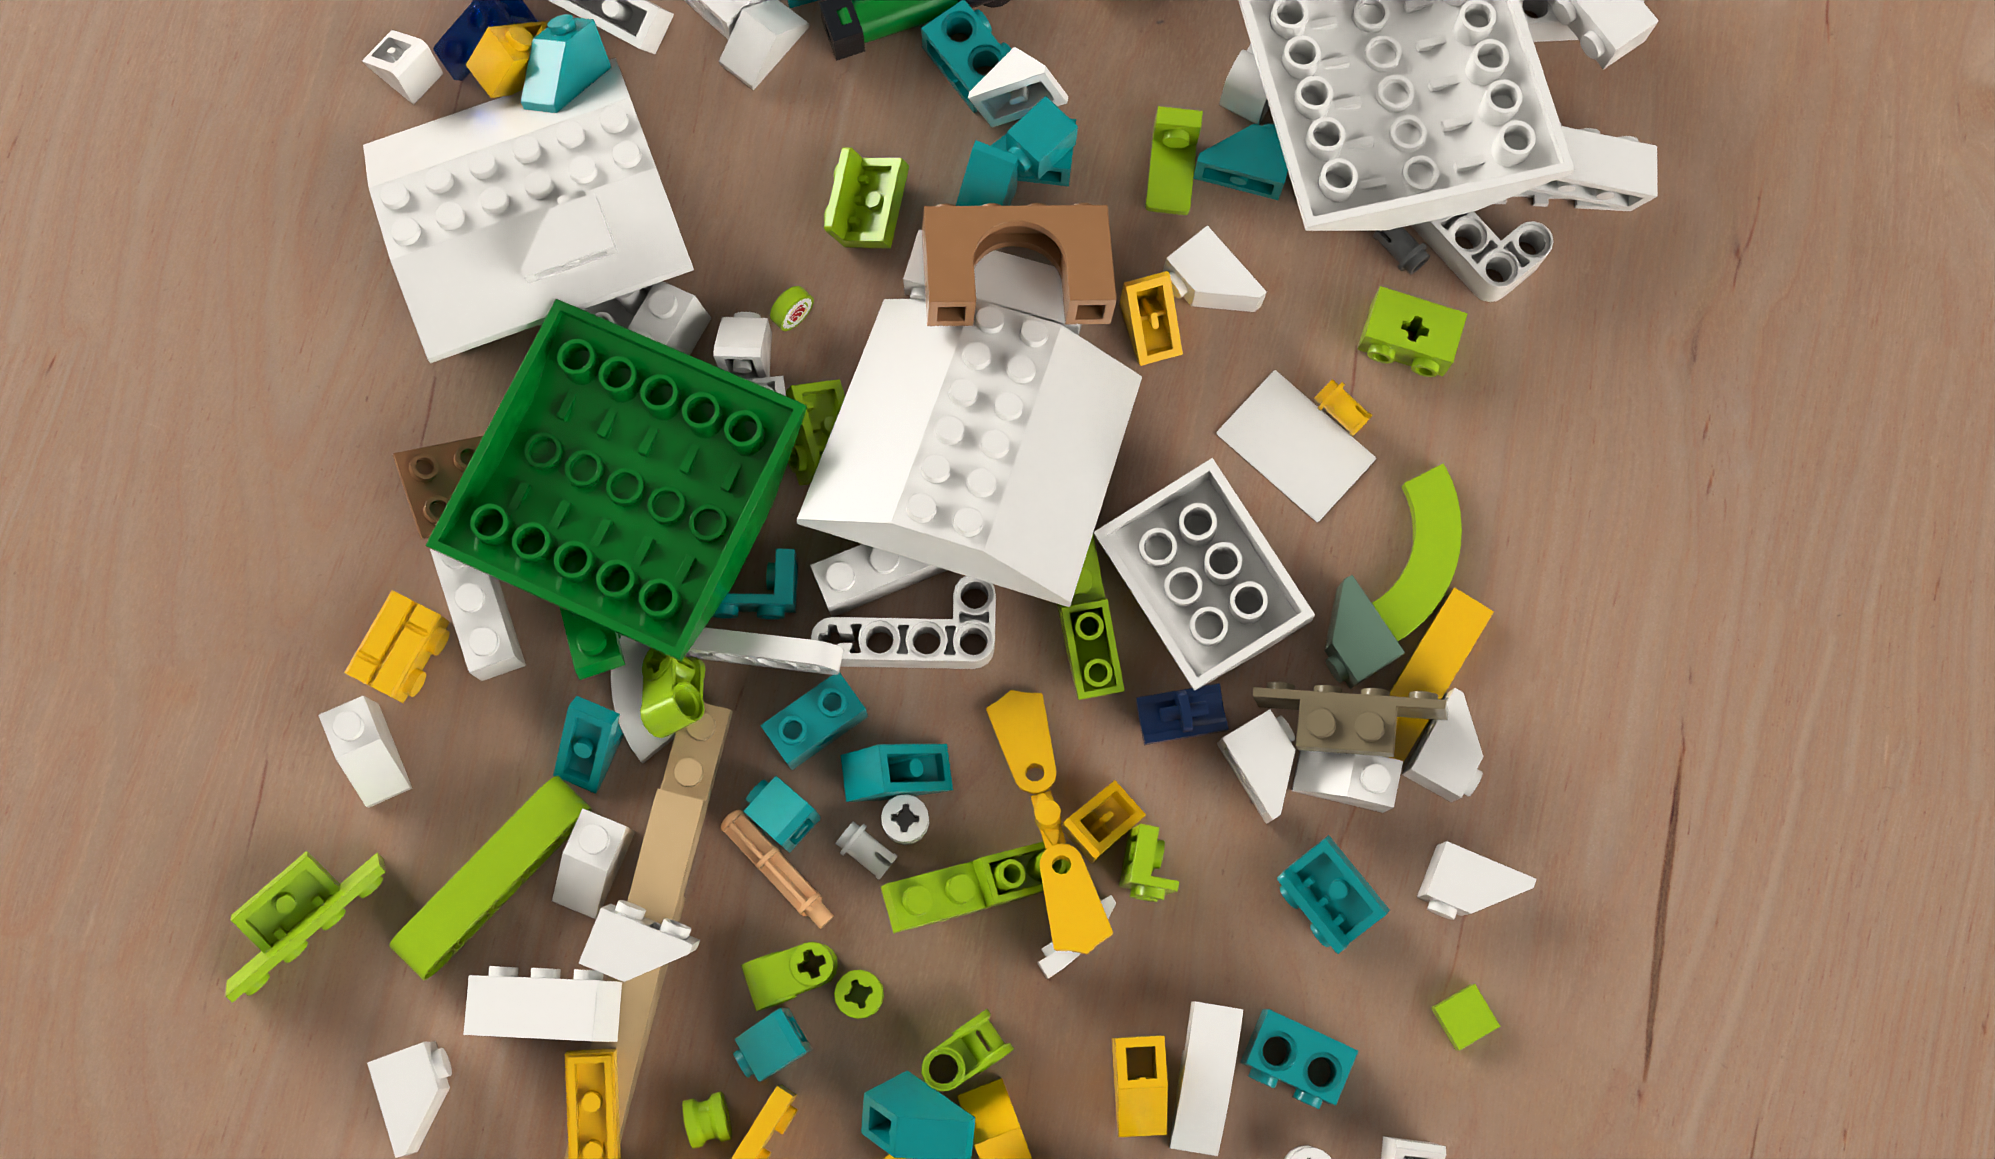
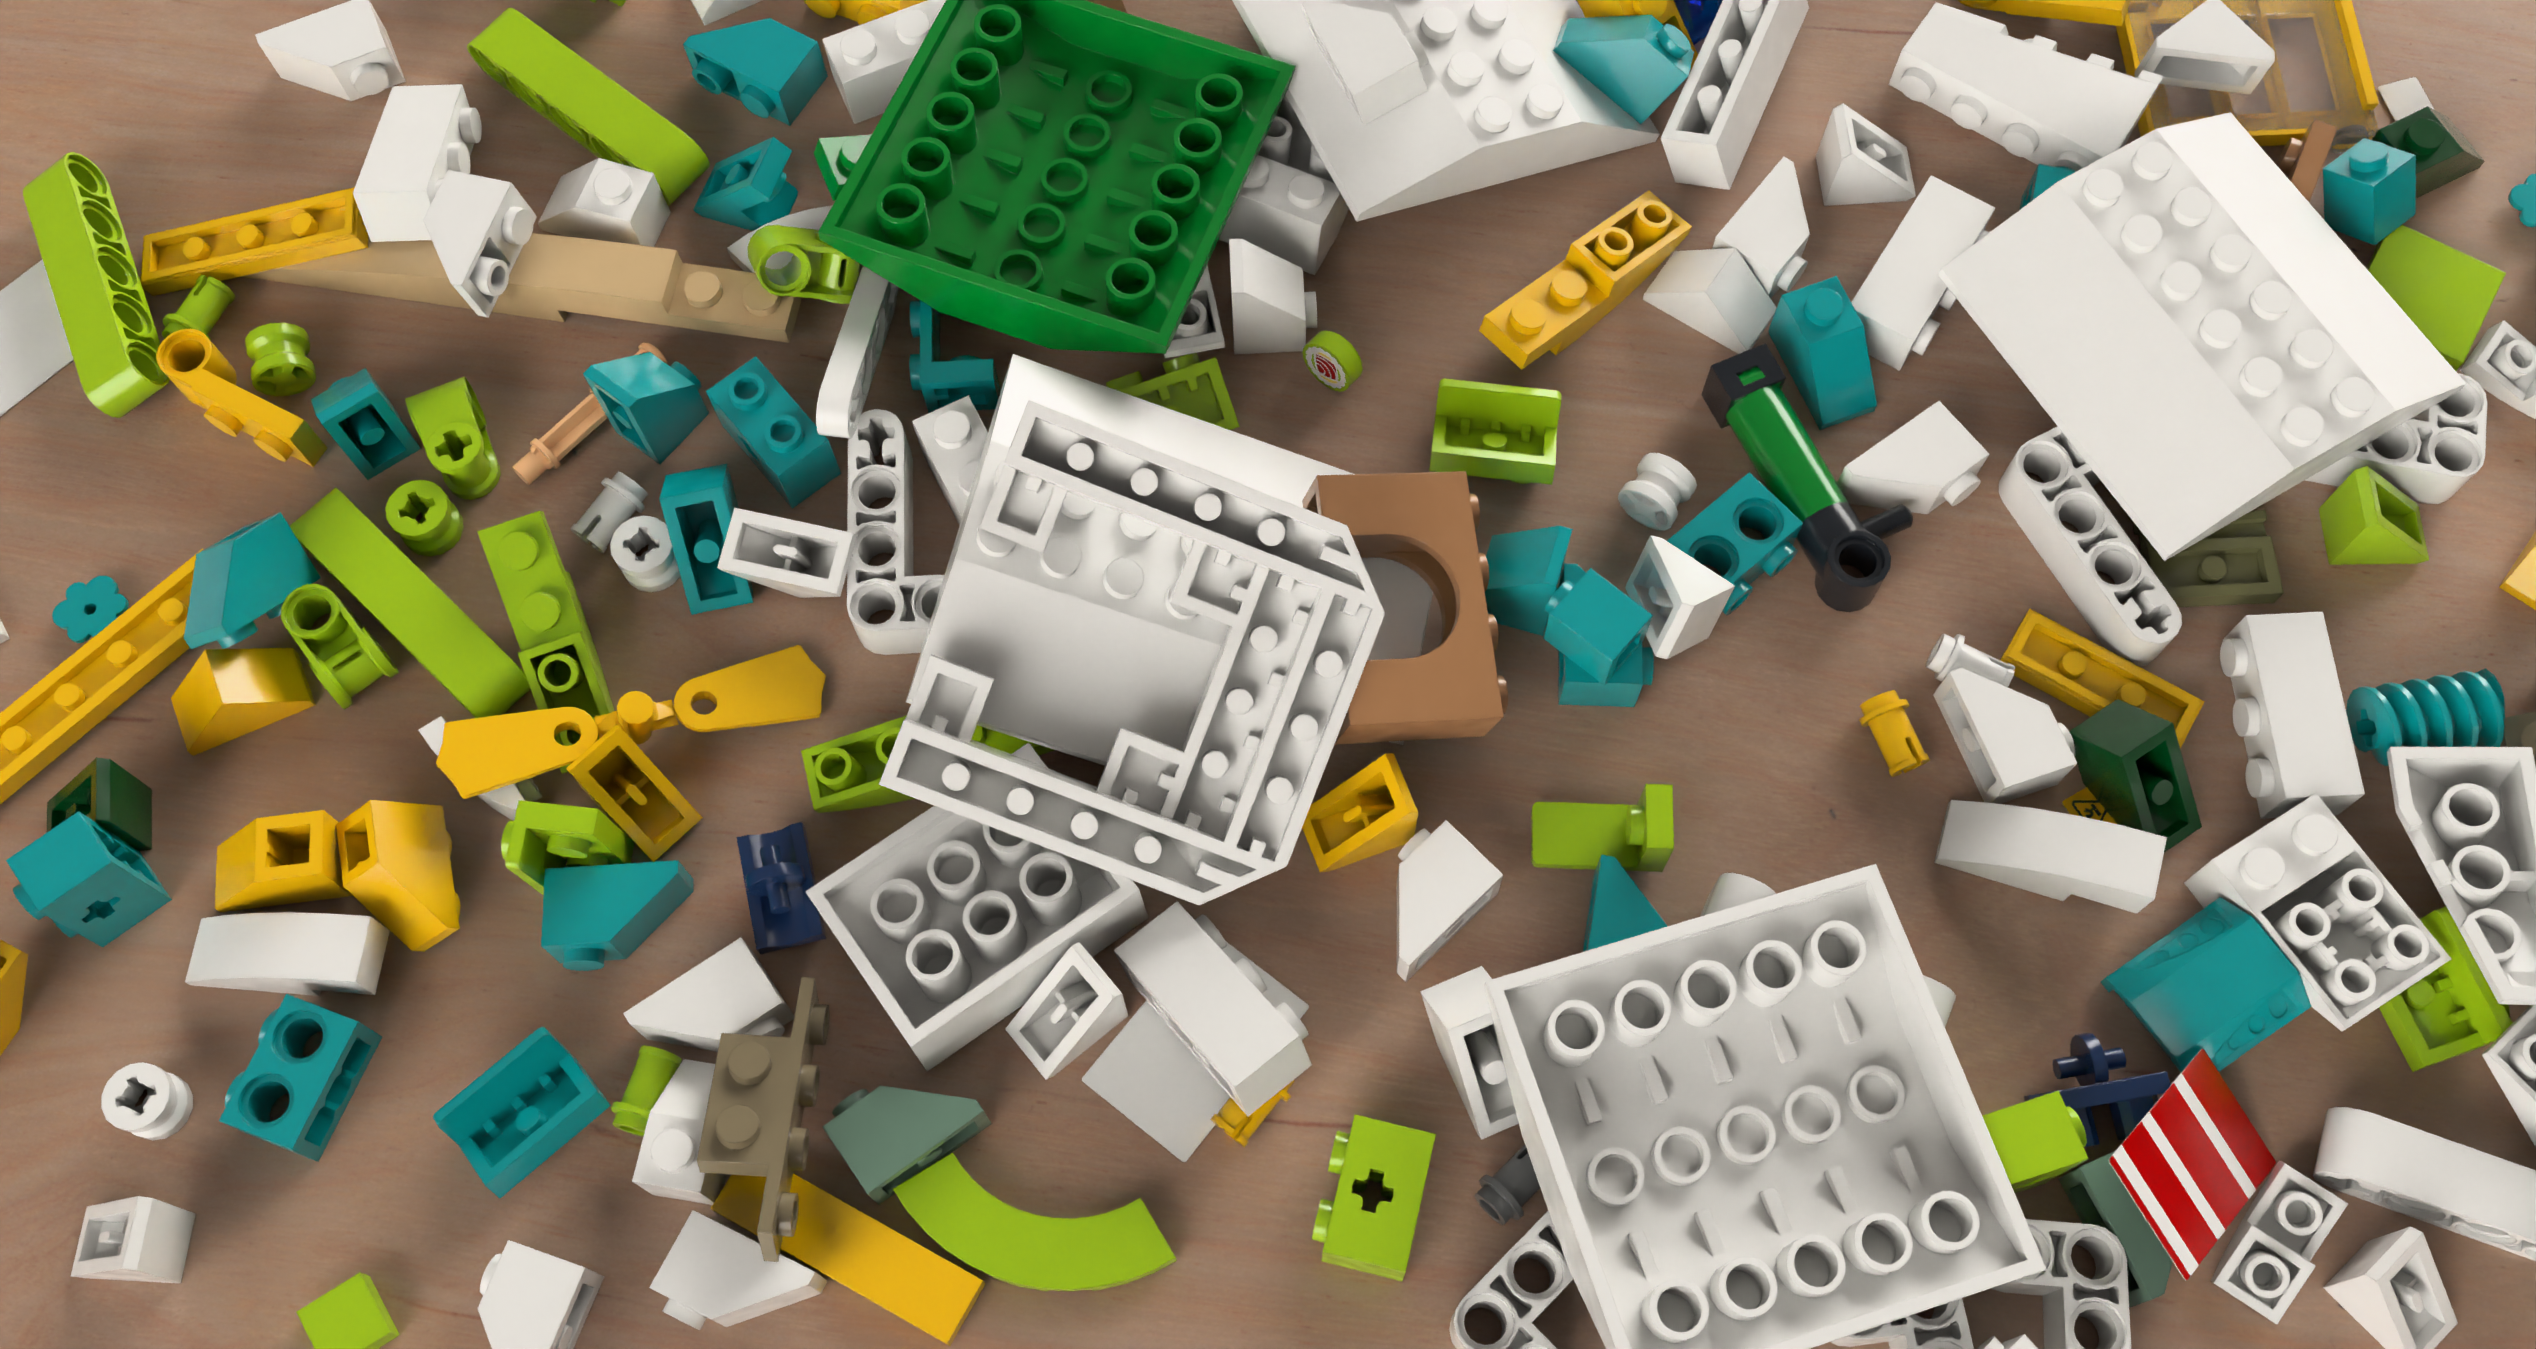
camera: 90 degrees right, 10 degrees down
(470, 735) = (760, 65): none -> teal slope
(744, 121) = (1587, 284): none -> yellow slope
(920, 95) = (1657, 491): none -> white wheel
(927, 701) = (787, 554): none -> white slope
(934, 1001) = (410, 606): none -> lime beam
(1085, 348) = (1268, 715): none -> white slope
(1152, 989) = (401, 869): none -> yellow slope
(1190, 840) = (608, 909): none -> teal slope
(1282, 520) = (1067, 1012): none -> white slope
(1285, 420) = (1216, 1006): none -> white brick
(1315, 258) = (1471, 1049): none -> white slope
(1317, 813) = (646, 1084): none -> lime pin

